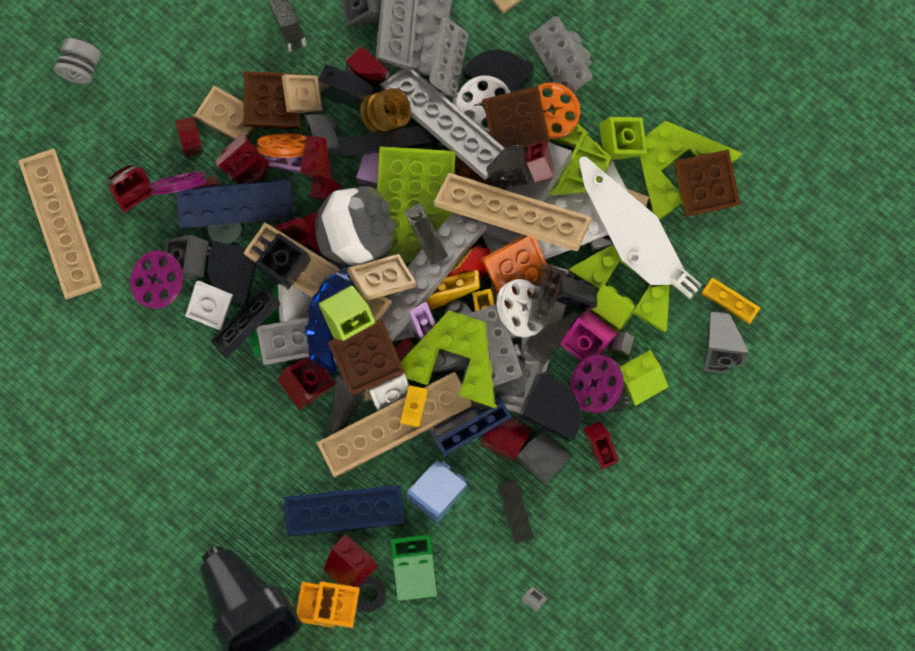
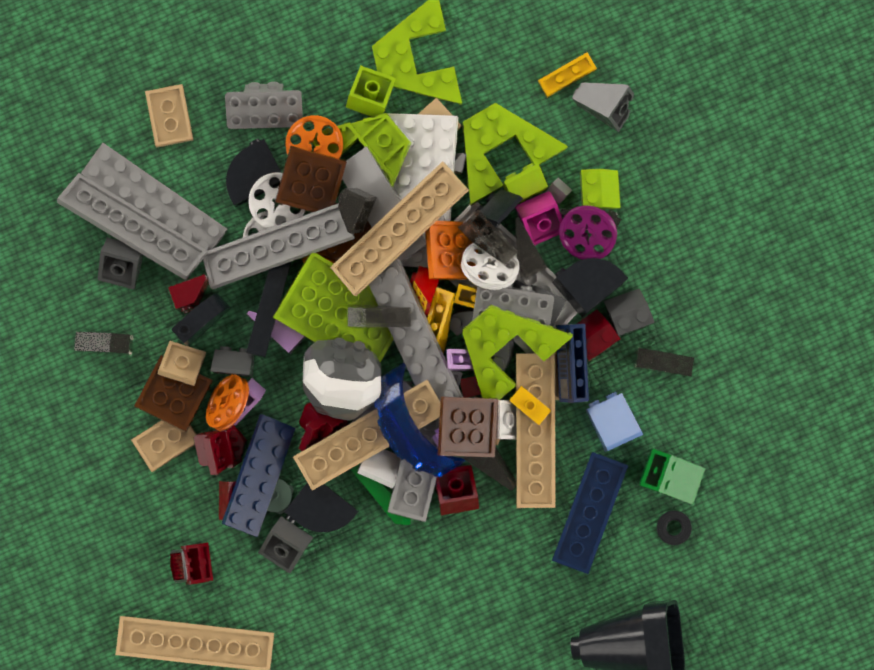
camera: 60 degrees left, 10 degrees up
(77, 61) = (46, 556): light grey wheel -> none
(162, 275) = (295, 588): magenta wedge -> none
(178, 183) = (214, 518): magenta wedge -> none
(189, 136) = (168, 485): dark red slope -> none
(209, 305) = (342, 544): white tile -> none
(245, 322) = (377, 519): black tile -> none
(277, 250) = (334, 469): black hinge -> none
(316, 165) = (263, 383): dark red arch -> none
(327, 604) = (669, 568): light orange bracket -> none
(346, 313) = (425, 426): lime slope -> none
(349, 563) = (642, 532): dark red slope -> none
(381, 277) = (401, 377): tan tile -> none
(385, 110) = (241, 295): pearl gold wheel -> none
(444, 56) = (212, 216): light grey bracket -> none
(534, 599) = (749, 384): light grey slope -> none
(540, 161) = (362, 179): dark red slope -> none
(601, 444) = (641, 256): dark red slope -> none
(635, 232) = (466, 127): white wing -> none
(706, 183) = (451, 39): reddish brown plate -> none

